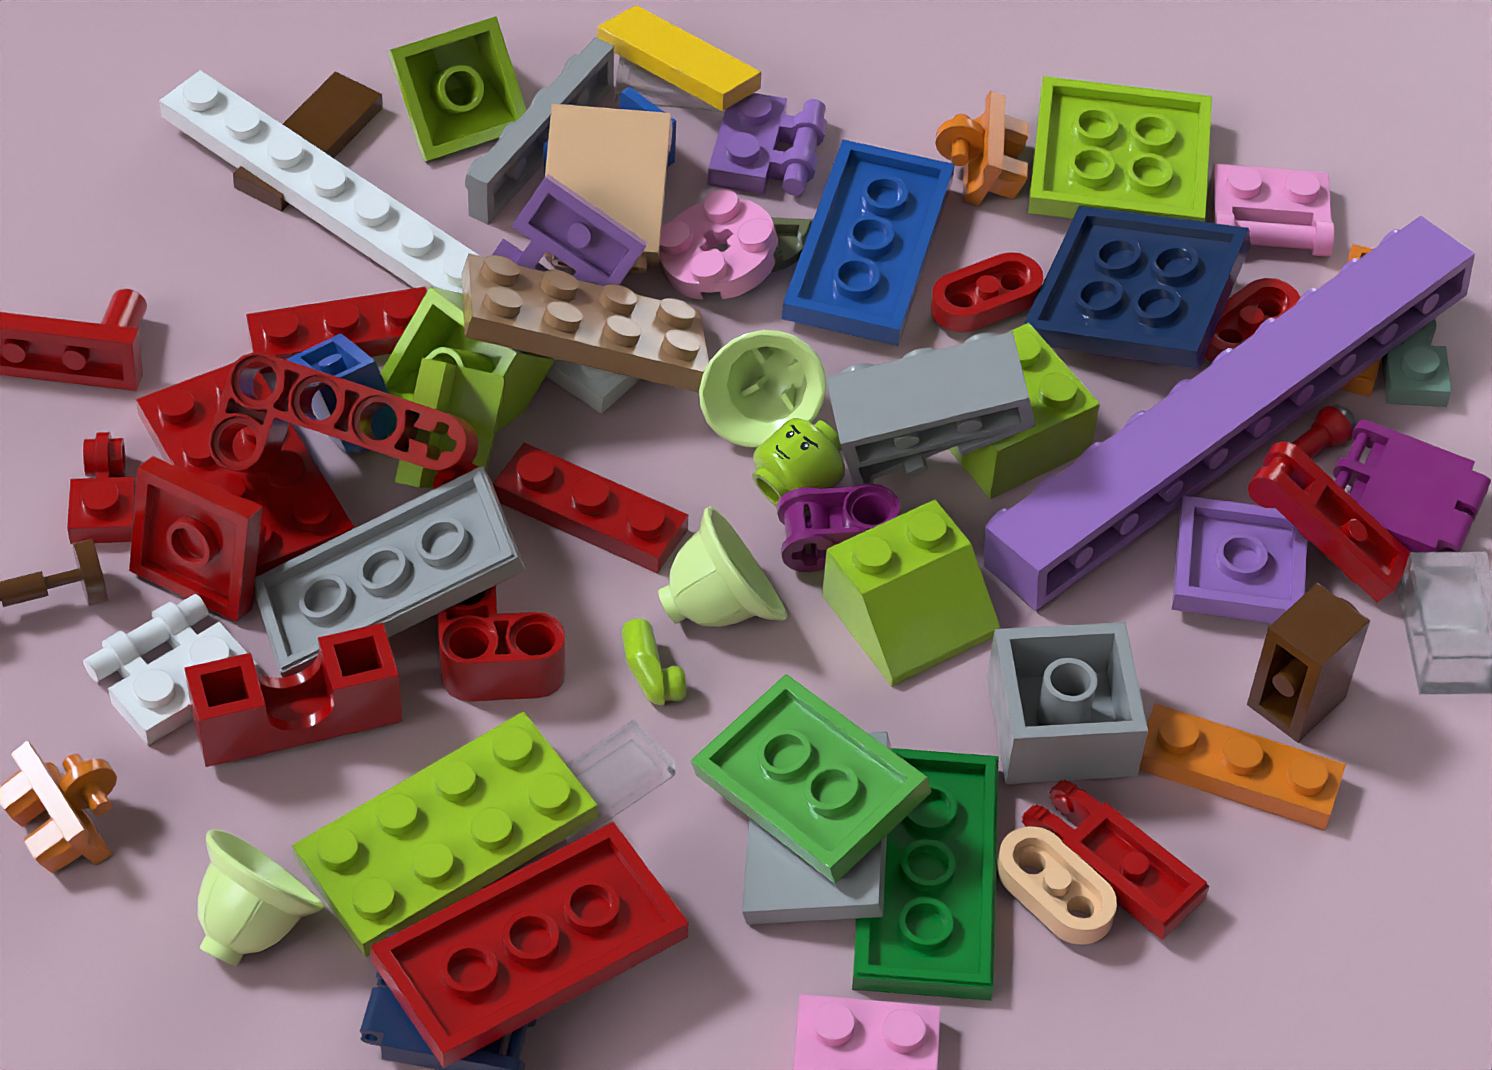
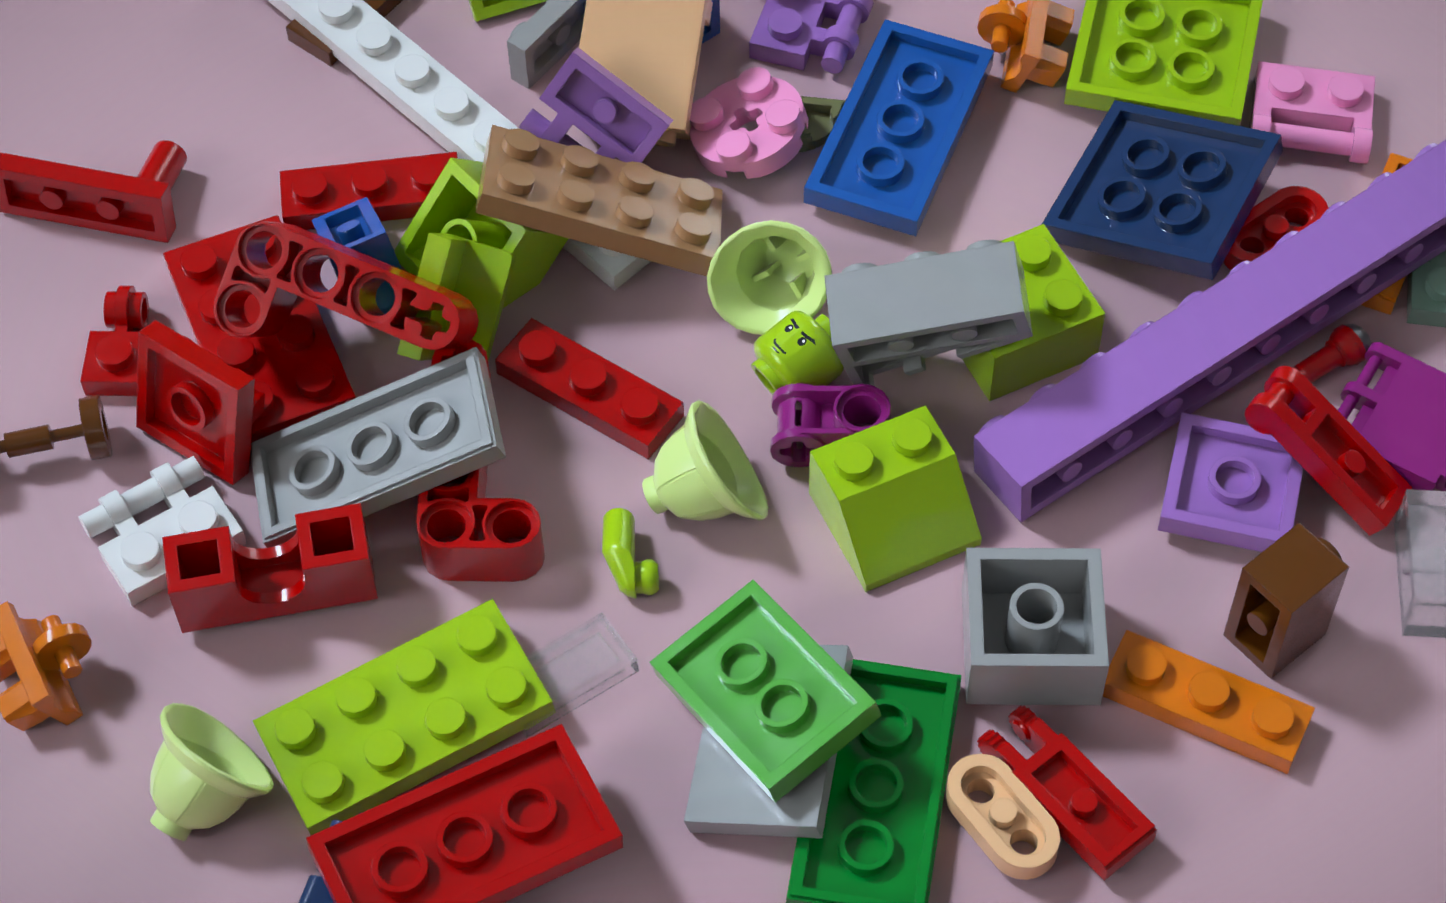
camera: 10 degrees right, 5 degrees up
(981, 292) = (1008, 186): red plate -> none

